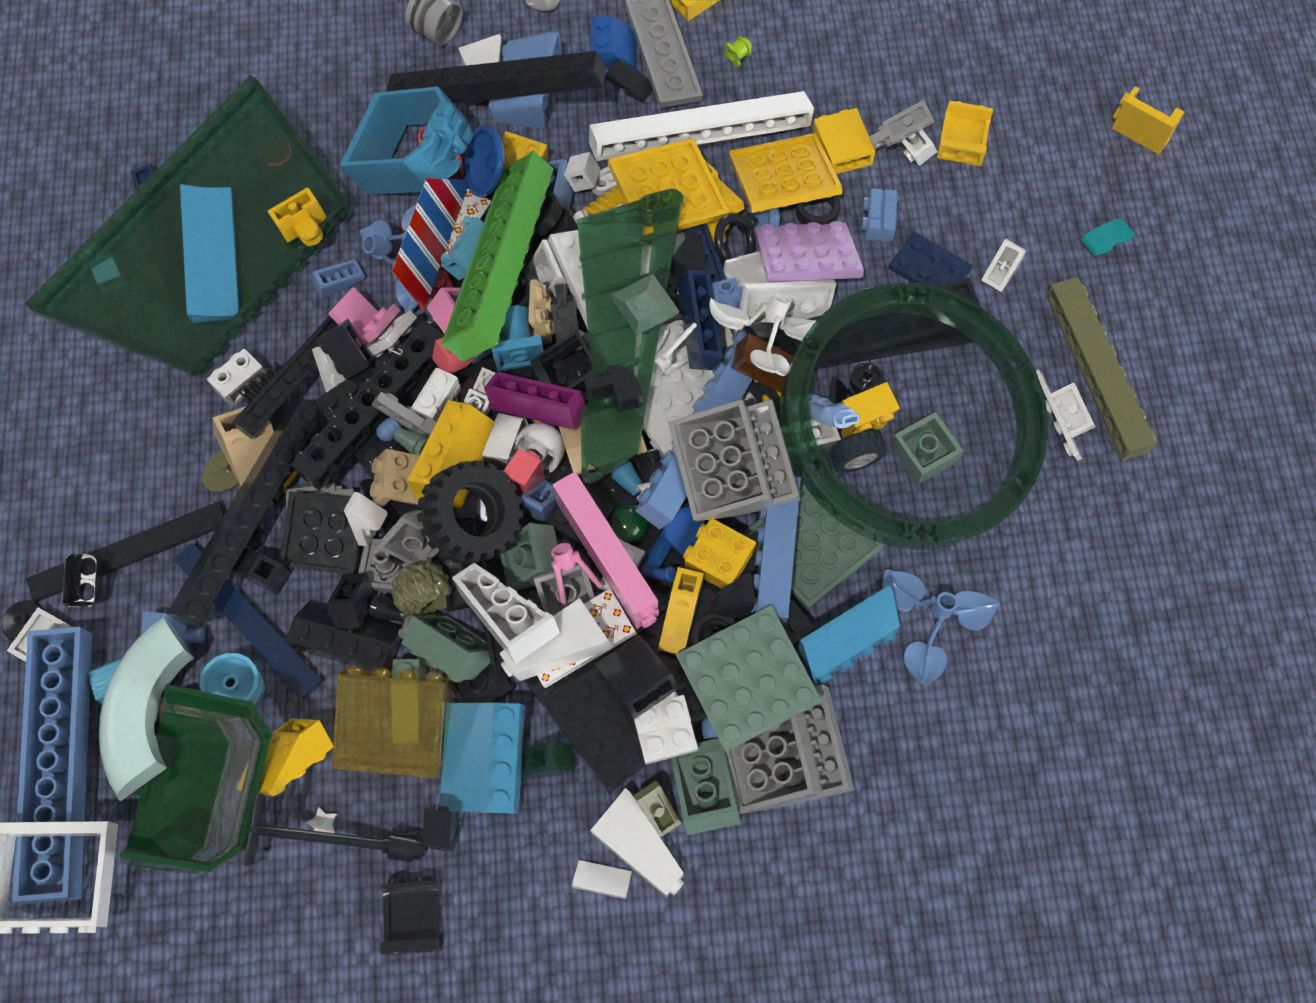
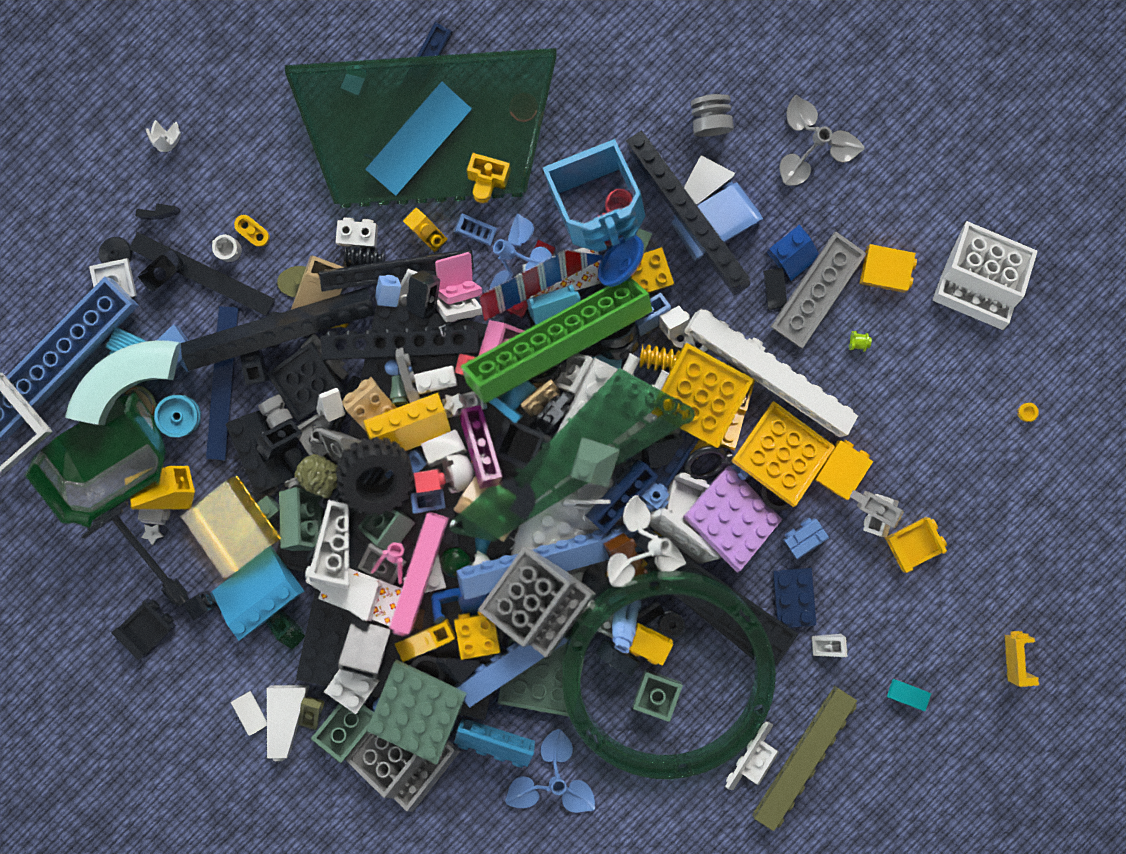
camera: 50 degrees right, 20 degrees up
(34, 537) = (162, 211): none -> black slope
(128, 504) = (226, 248): none -> white piece
(138, 469) = (252, 230): none -> yellow plate
(293, 315) = (425, 229): none -> yellow slope
(302, 798) = (154, 516): none -> white brick
(313, 380) = (388, 291): none -> light blue brick
(318, 586) = (275, 411): none -> light grey wheel
(473, 396) = (453, 403): none -> white piece

